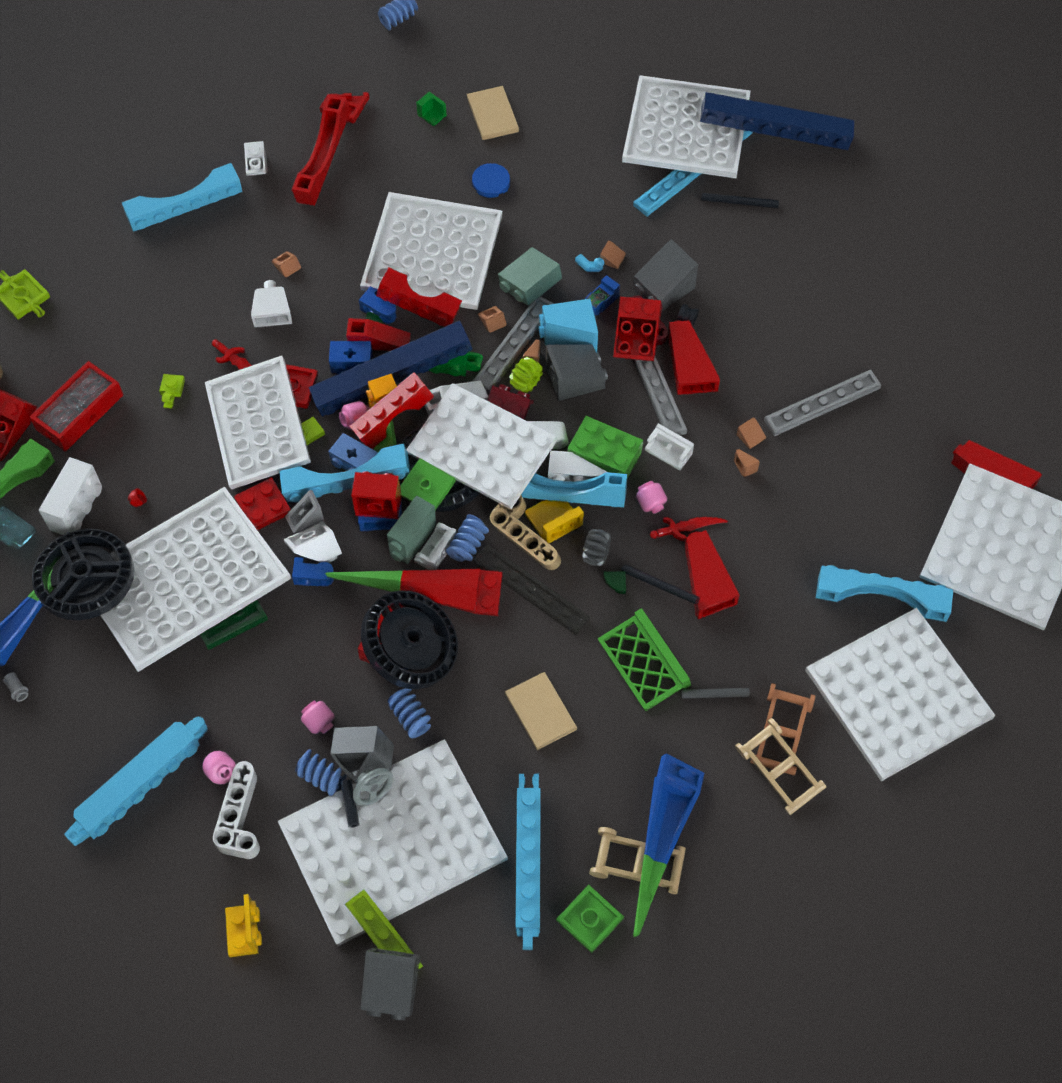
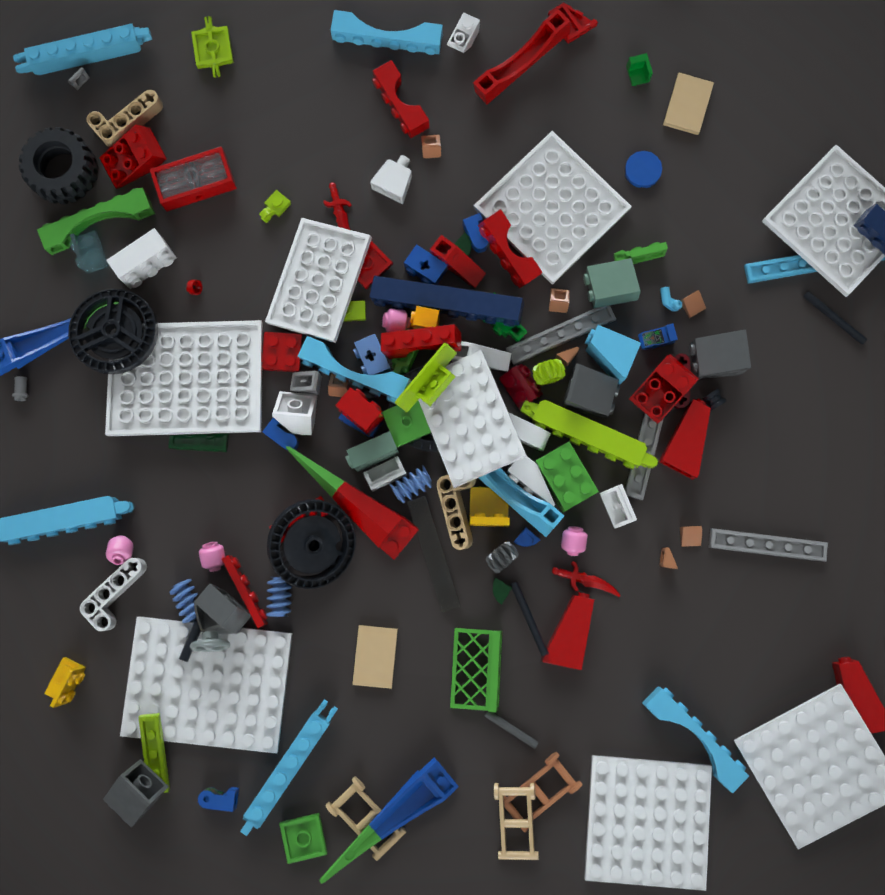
camera: 35 degrees right, 20 degrees up
(253, 250) = (412, 117): none -> red arch
(338, 502) = (337, 387): none -> nougat slope
(346, 715) = (241, 583): none -> red plate
(424, 432) = (429, 381): none -> lime bracket
(480, 938) = (219, 800): none -> blue leg
(541, 239) = (643, 254): none -> bright green hinge
(602, 401) = (589, 433): none -> lime hinge
(608, 523) = (526, 538): none -> blue tile

